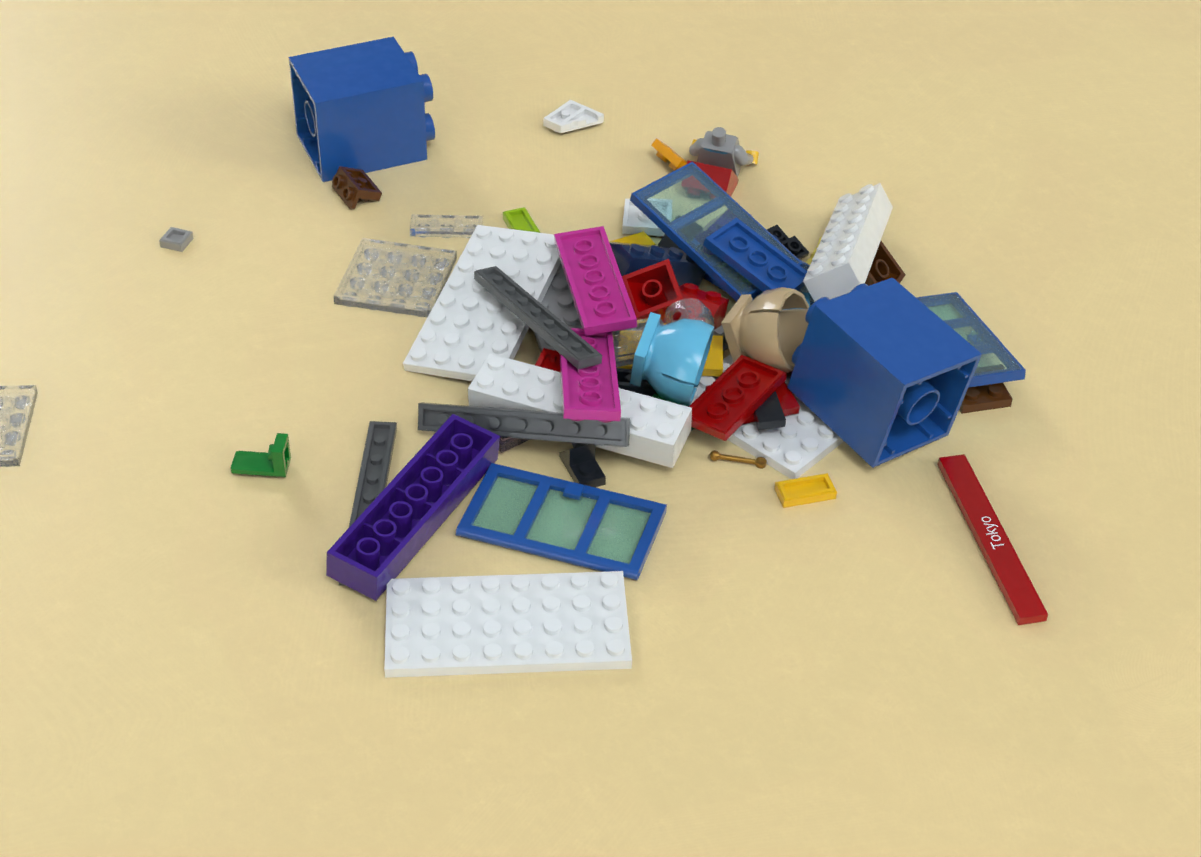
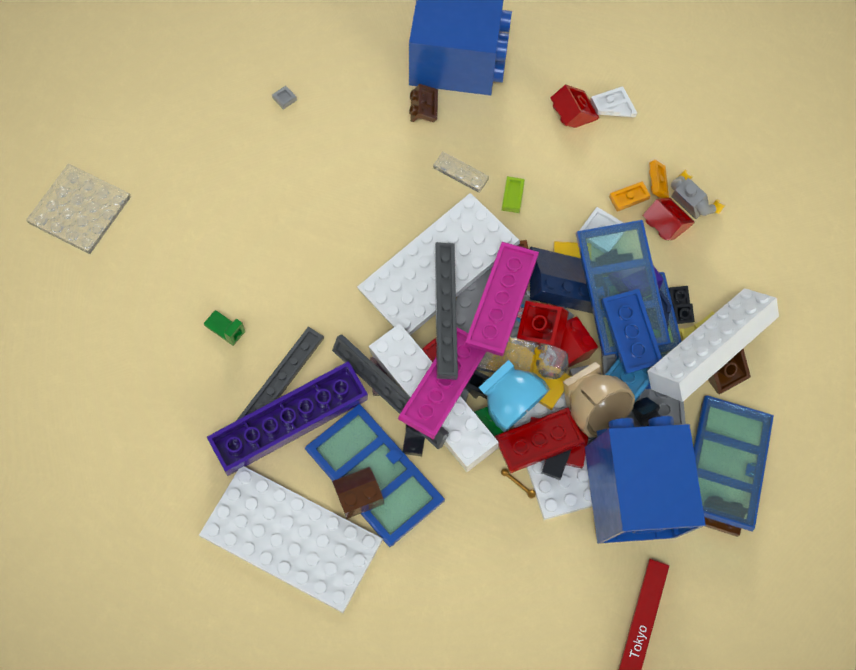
camera: 30 degrees right, 25 degrees up
(395, 277) = (399, 205): clear plate -> none
(530, 132) = (573, 106): none -> red slope
(562, 536) = (358, 492): none -> reddish brown slope
(652, 174) = (629, 196): none -> light orange plate
(805, 490) = (543, 534): yellow tile -> none

